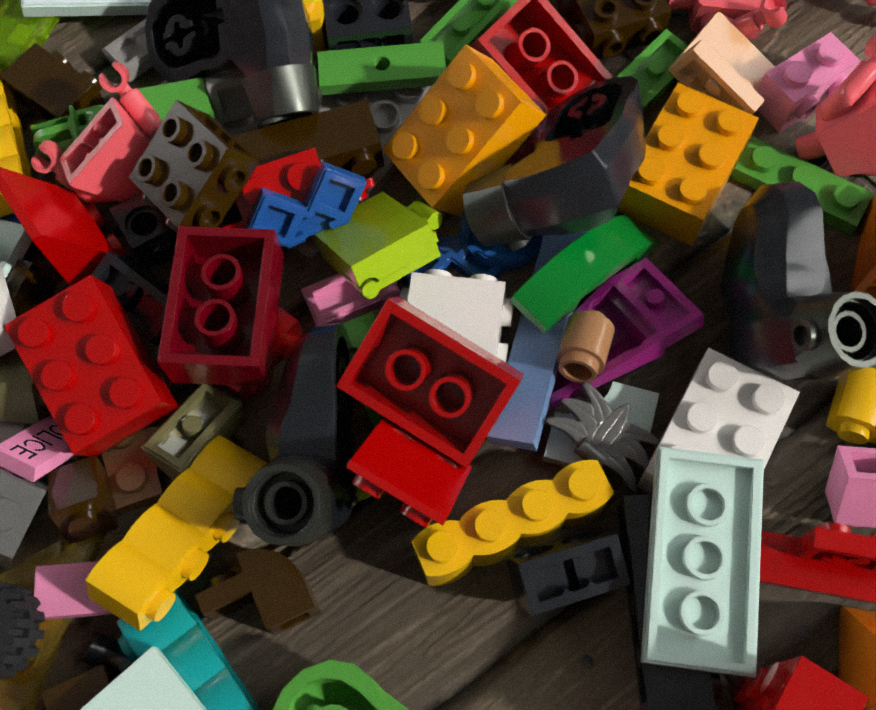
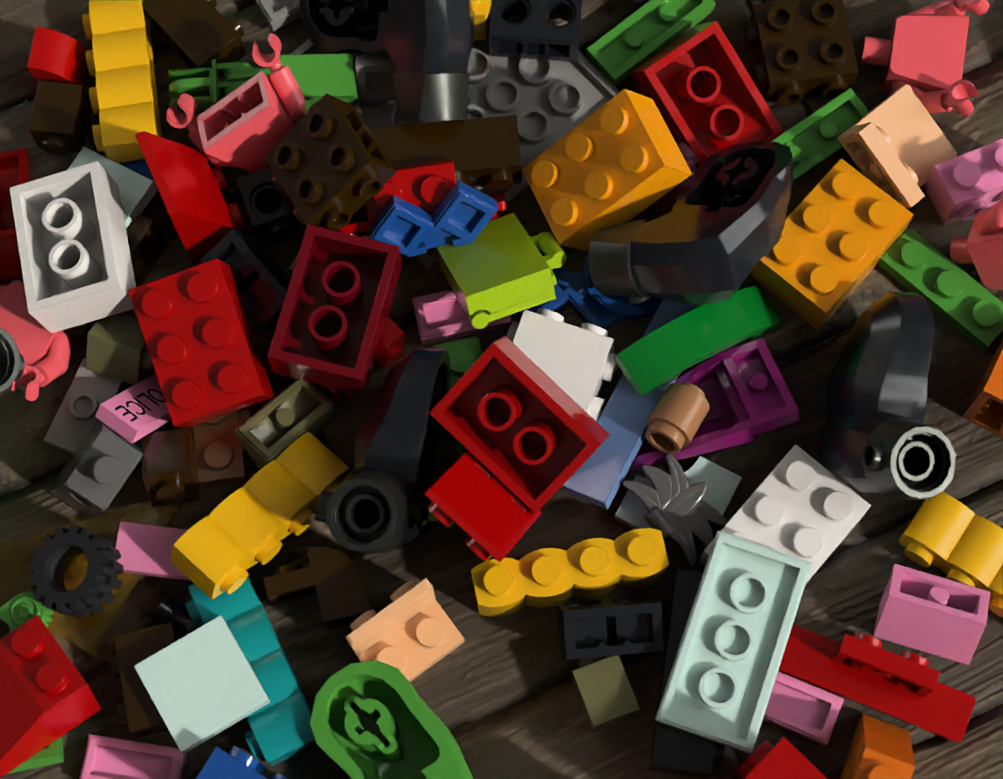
camera: 10 degrees right, 5 degrees up
(356, 622) = (407, 633): none -> light nougat bracket
(380, 67) = (514, 73): bright green tile -> none
(576, 640) = (604, 691): none -> olive brick
(789, 616) = (802, 709): none -> bright pink tile

